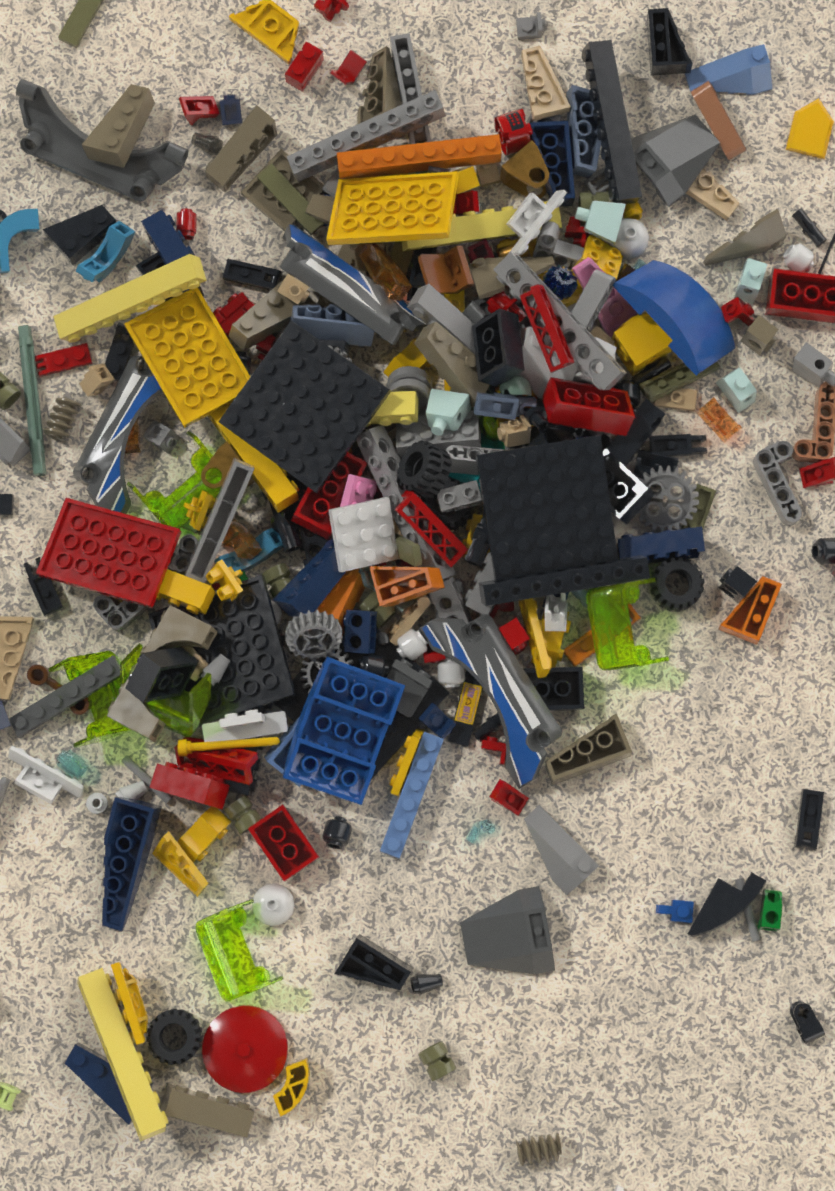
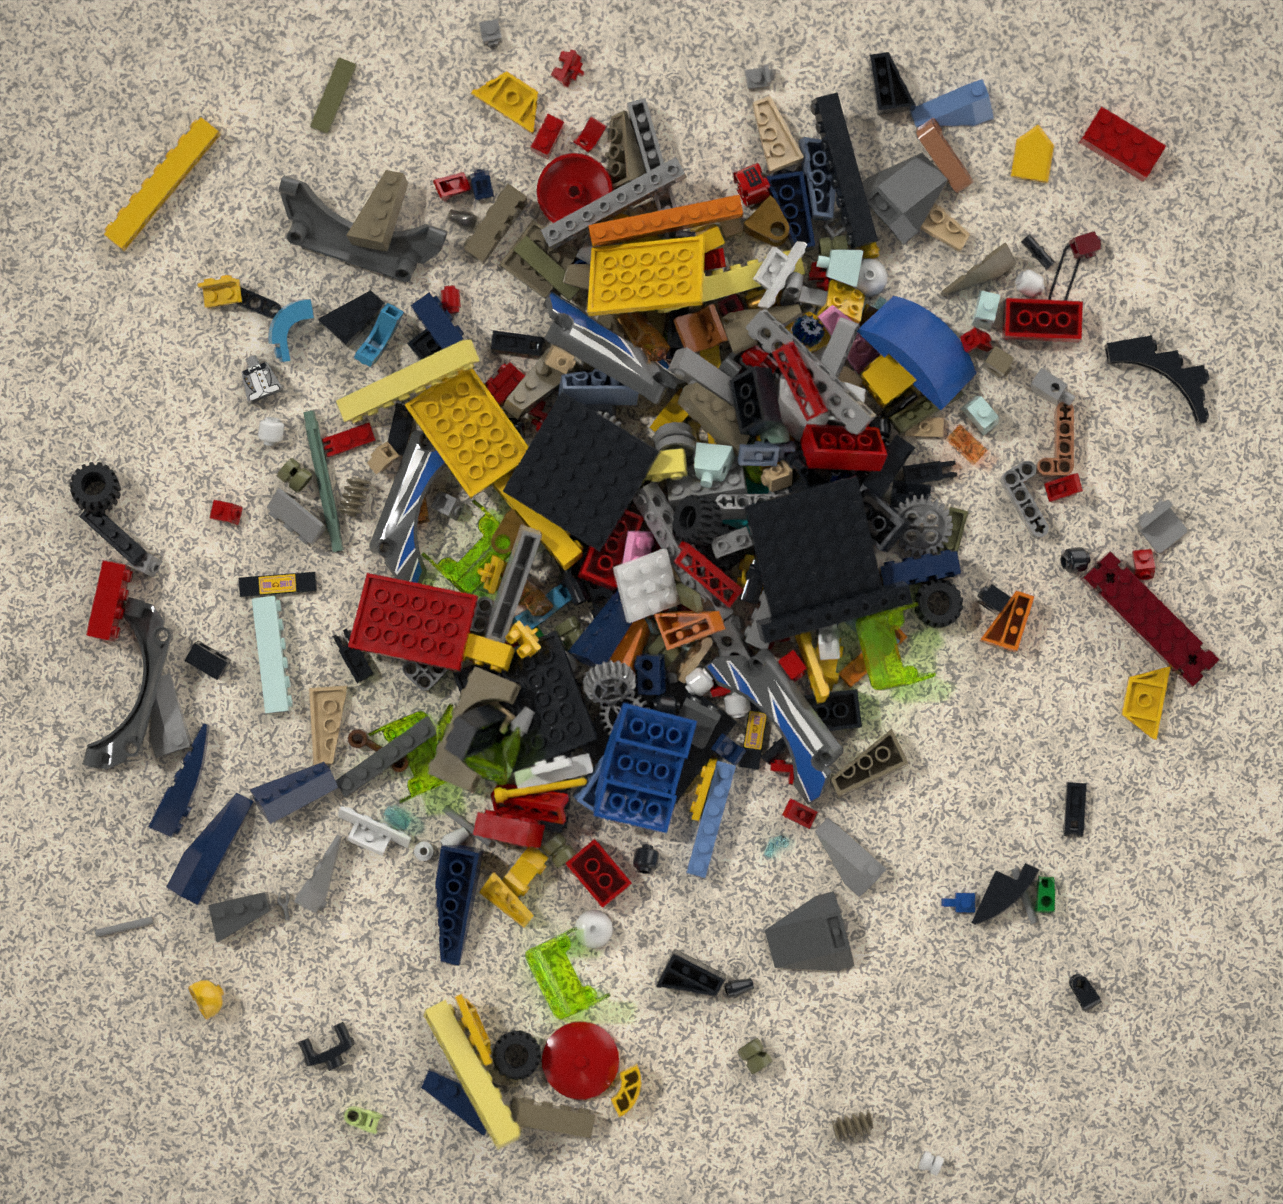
camera: 10 degrees left, 5 degrees up
(322, 112) = (571, 184): none -> red dish

